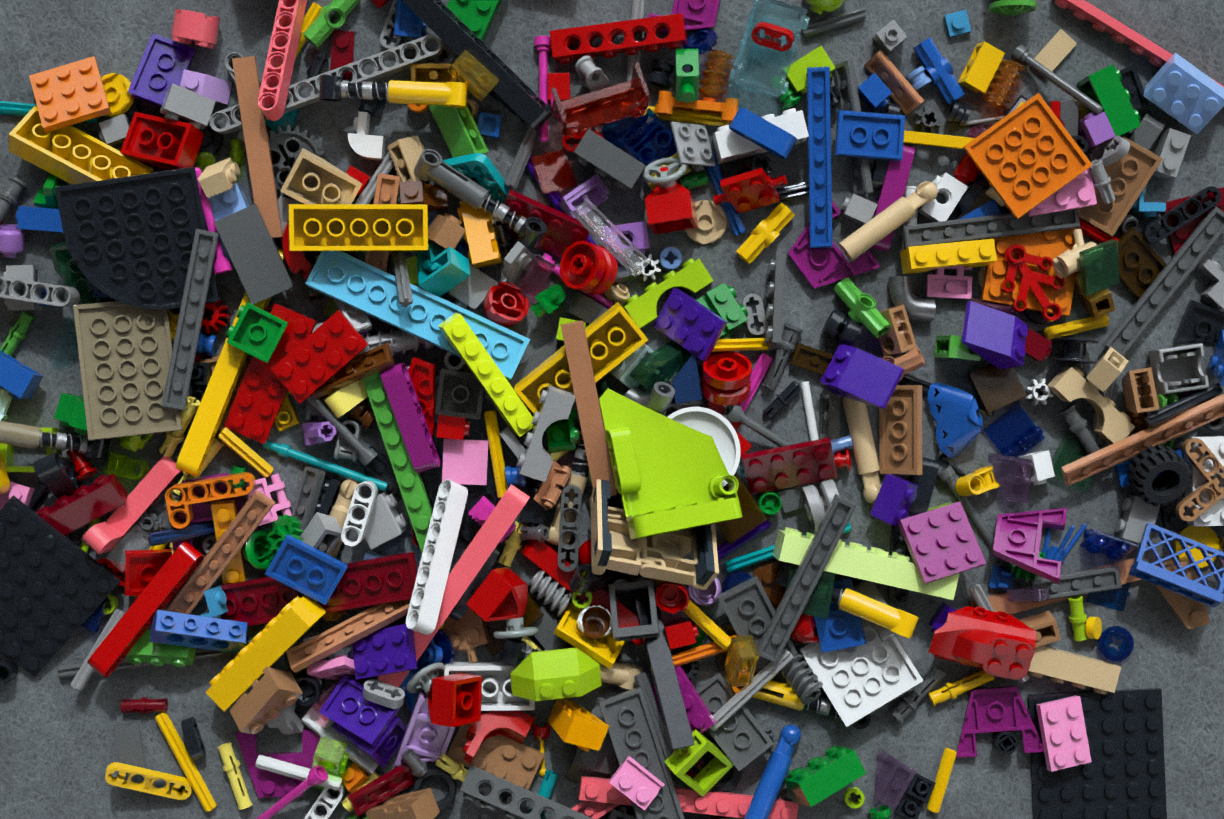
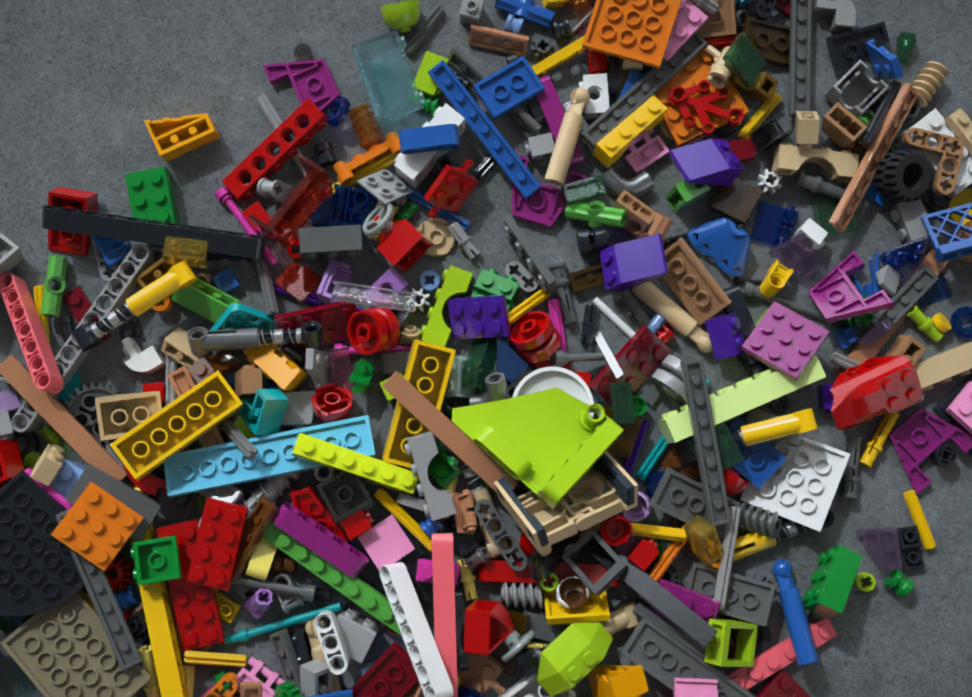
camera: 30 degrees left, 5 degrees down
(226, 265) = (97, 526): none -> orange plate
(686, 83) = (346, 145): green torso -> none
(727, 243) = (463, 239): none -> light grey axle
(759, 492) = (622, 403): none -> clear green plate
(765, 233) = (485, 213): yellow piece -> none
(772, 36) = (384, 64): red beam -> none
(779, 439) = (608, 354): none -> white sticker
(867, 277) = (583, 190): none -> clear green plate
(874, 92) = (489, 56): blue brick -> none
(1076, 556) = (888, 279): none -> light grey slope

